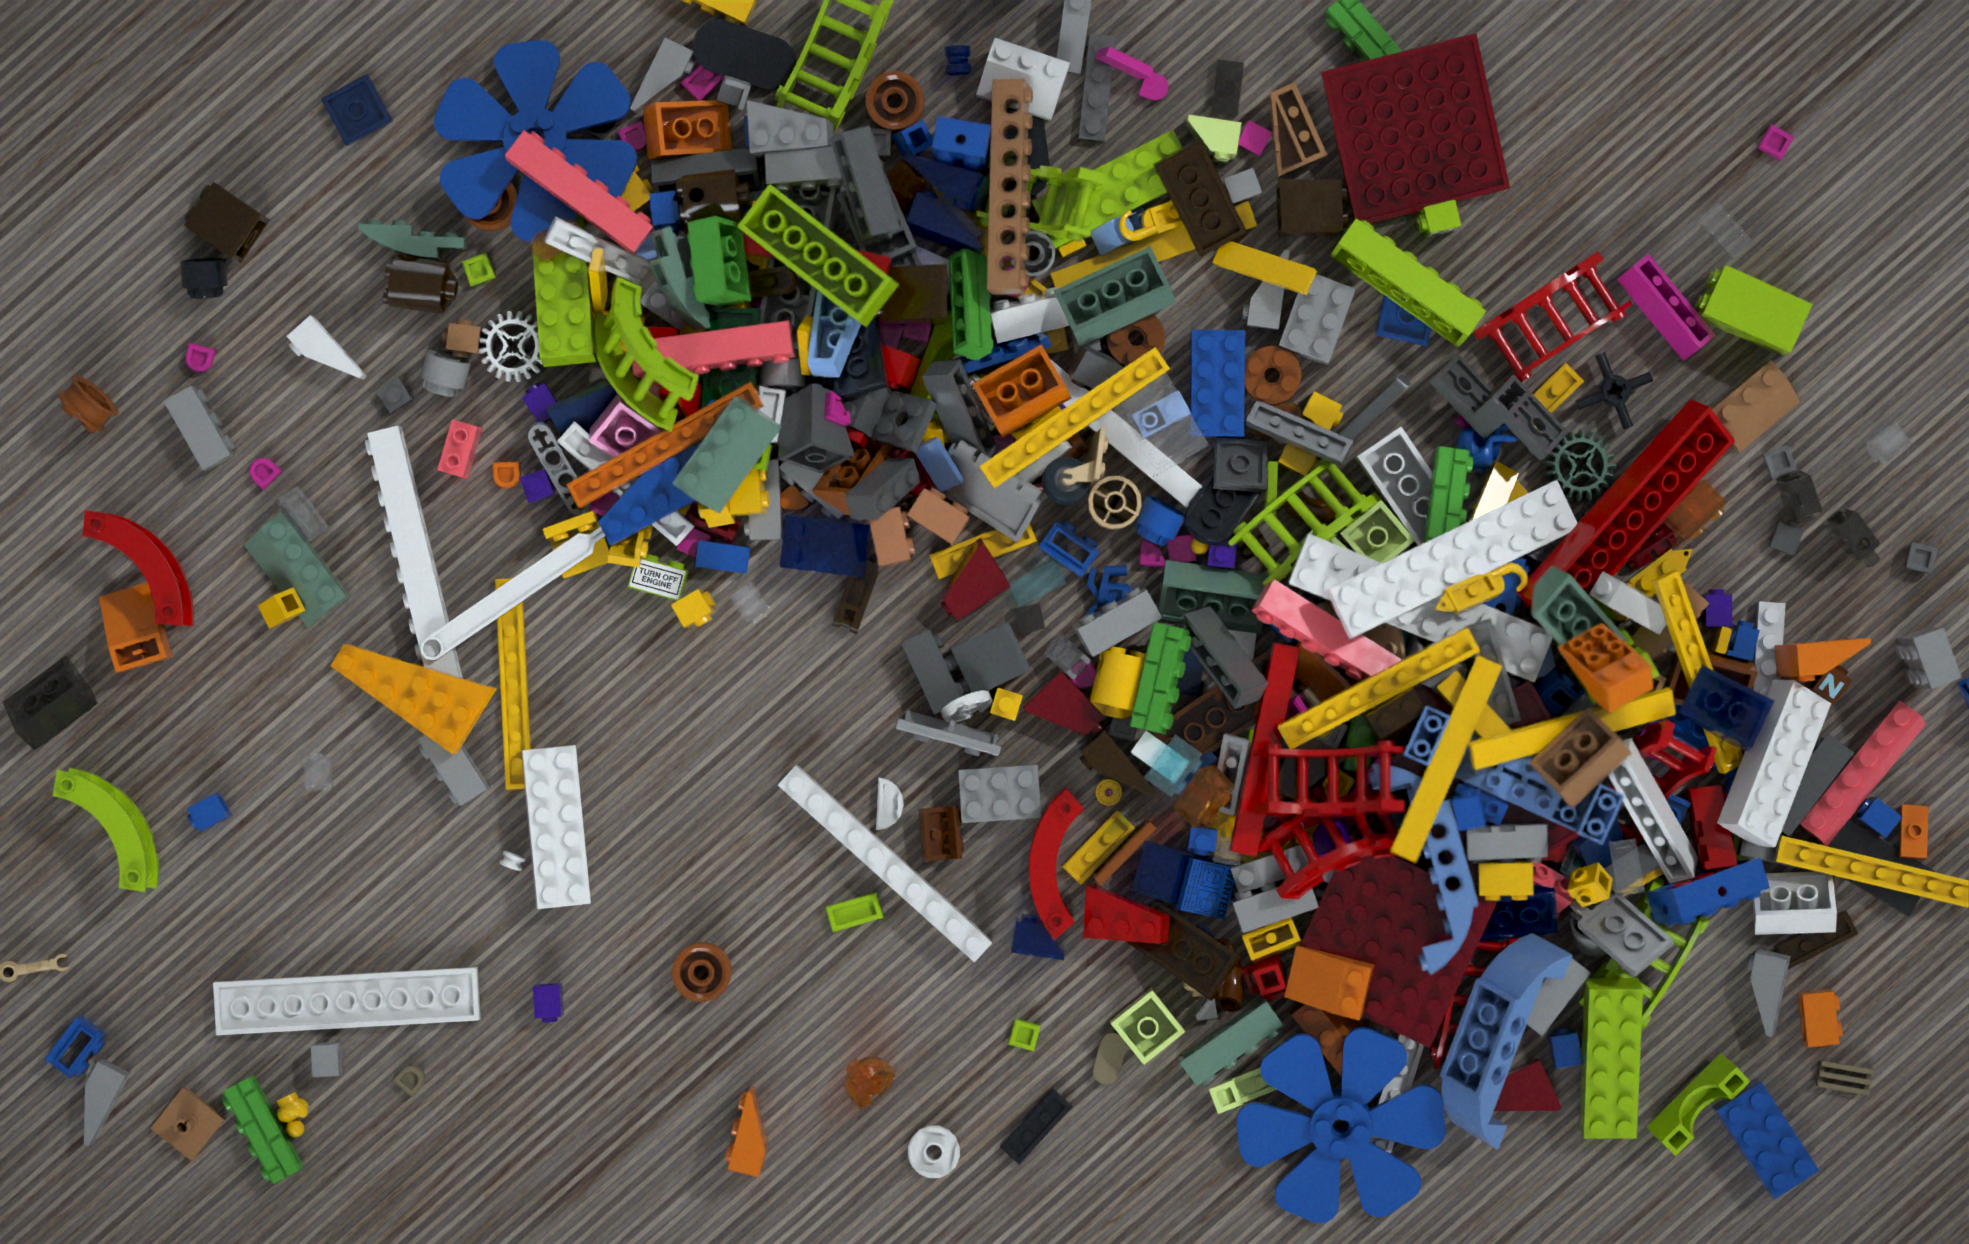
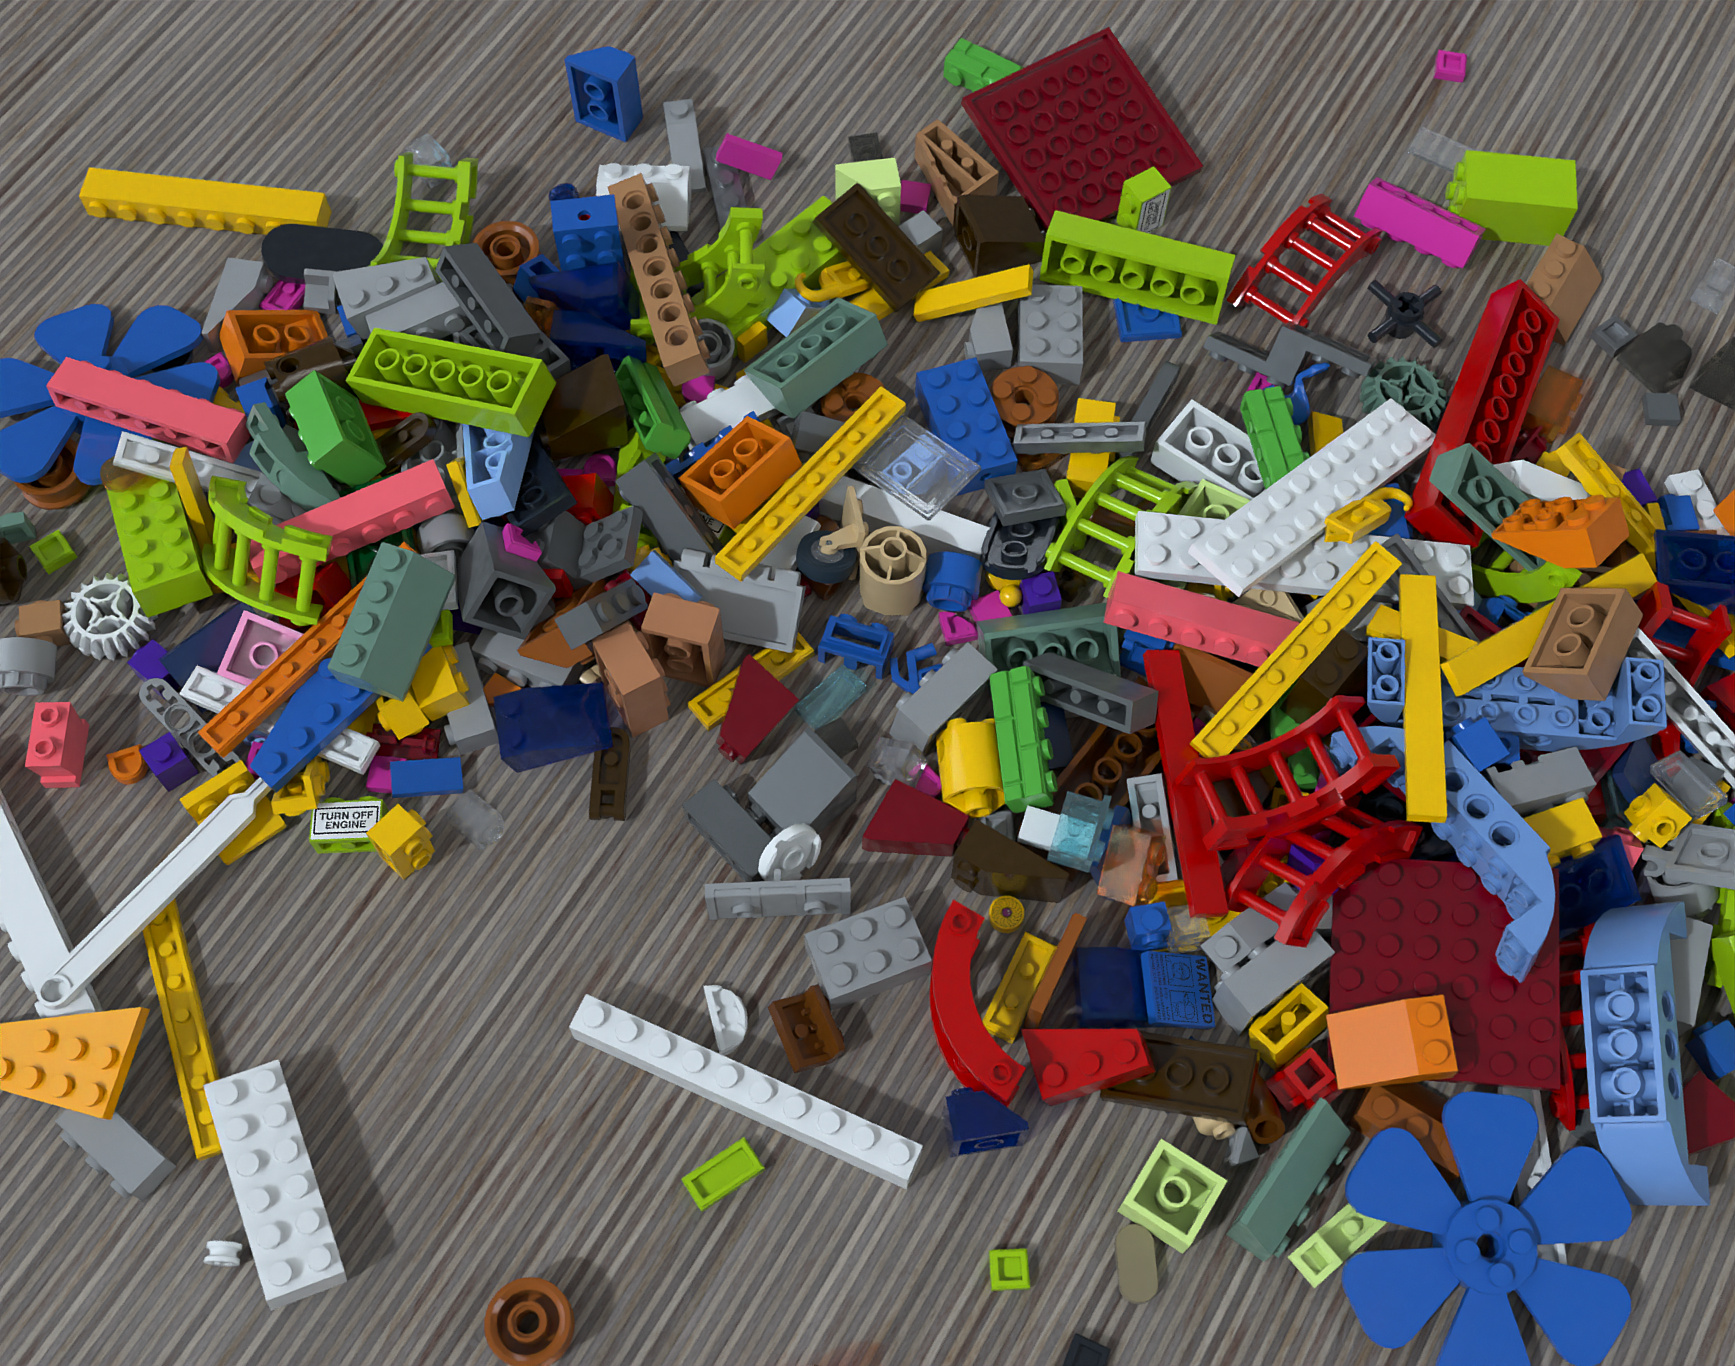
camera: 20 degrees left, 25 degrees down
(1006, 703) = (839, 842): yellow brick -> none
(1154, 87) = (789, 179): dark pink tile -> none
(1558, 387) = (1343, 328): yellow tile -> none

